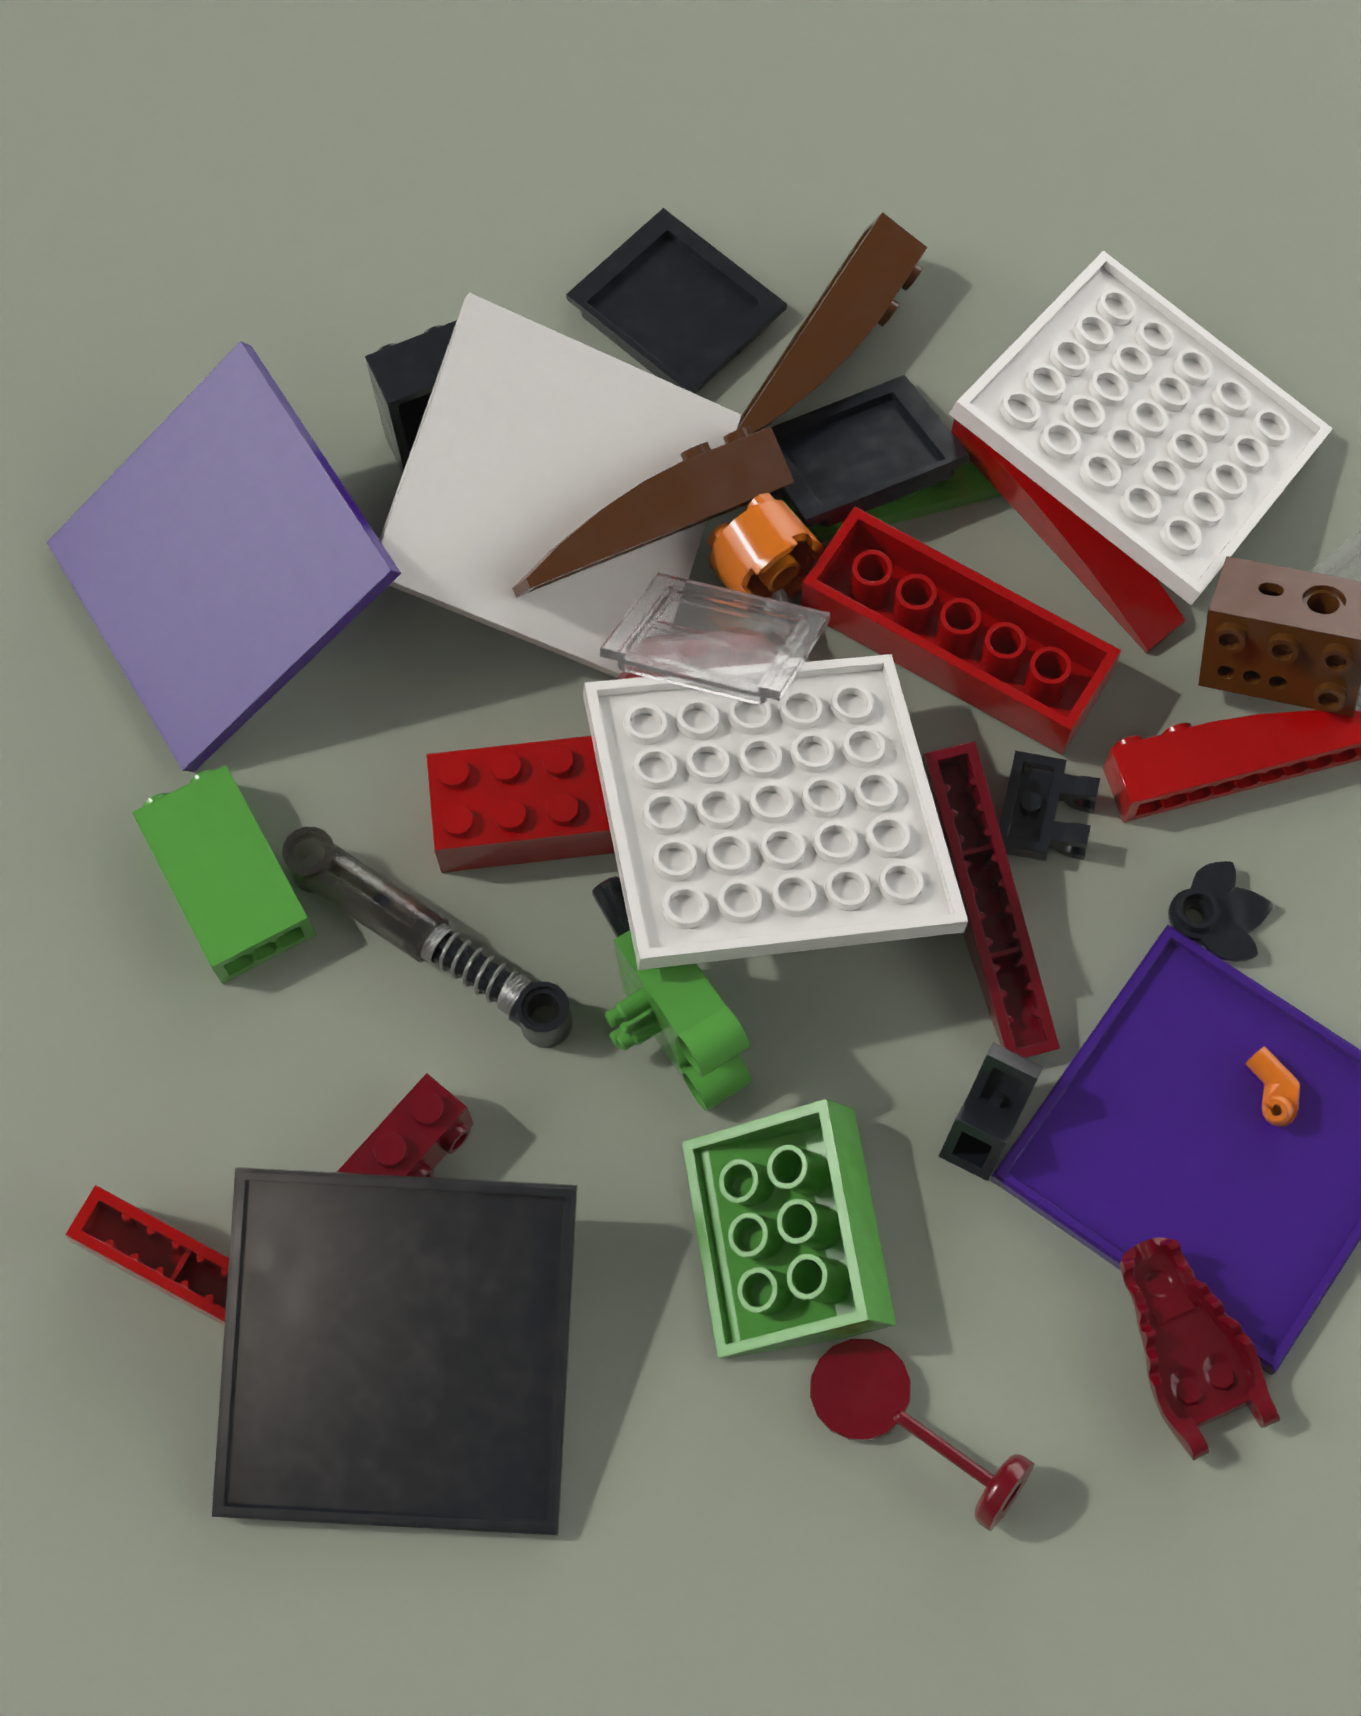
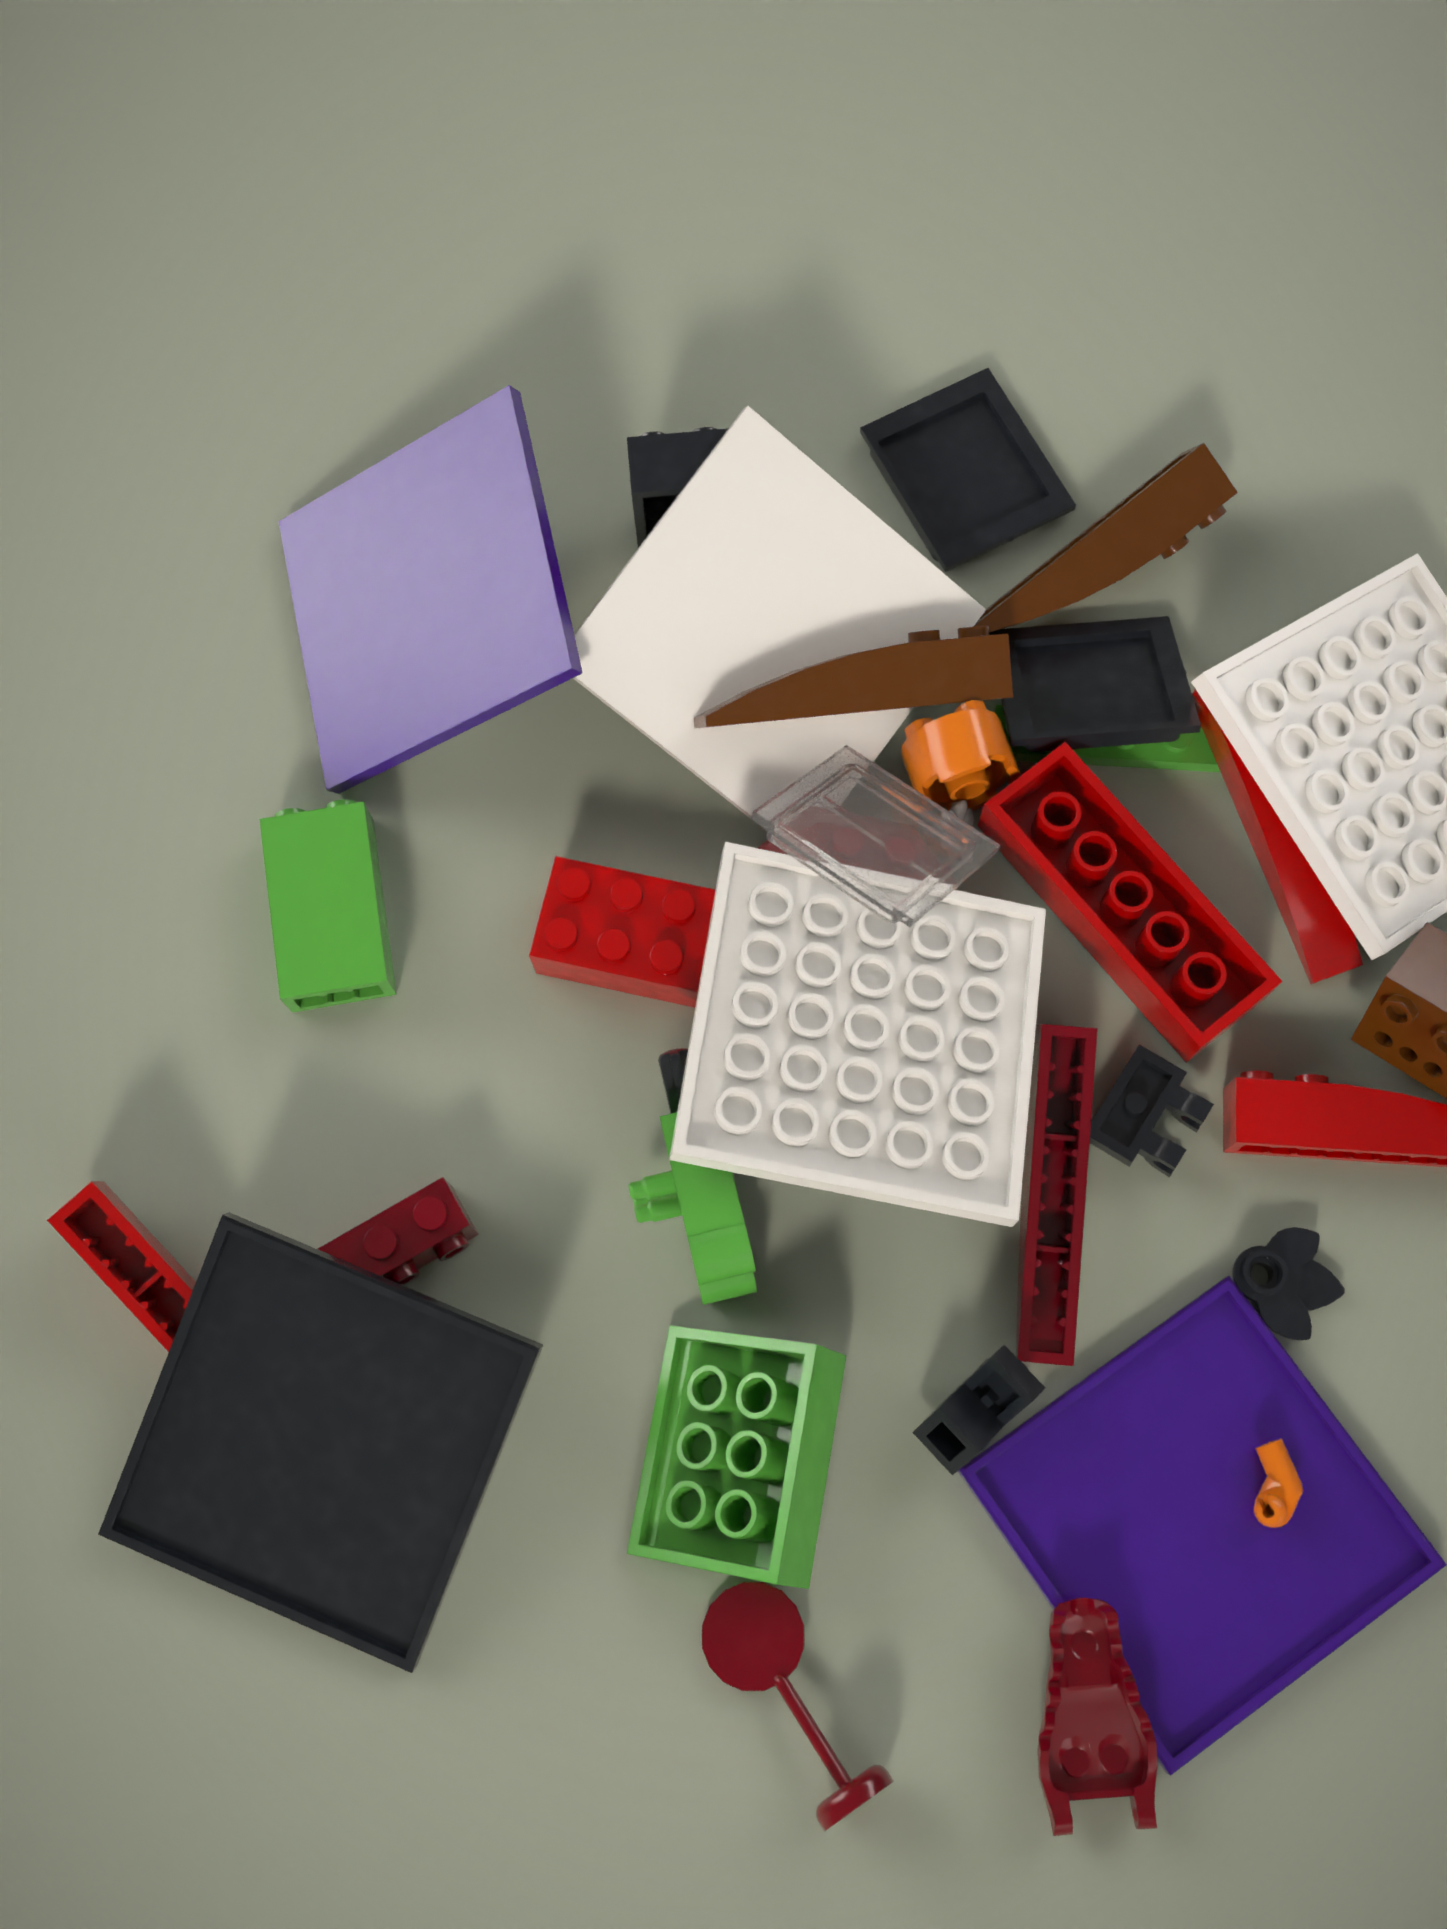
camera: 20 degrees right, 5 degrees up
(422, 933) = (493, 1030): piece -> none

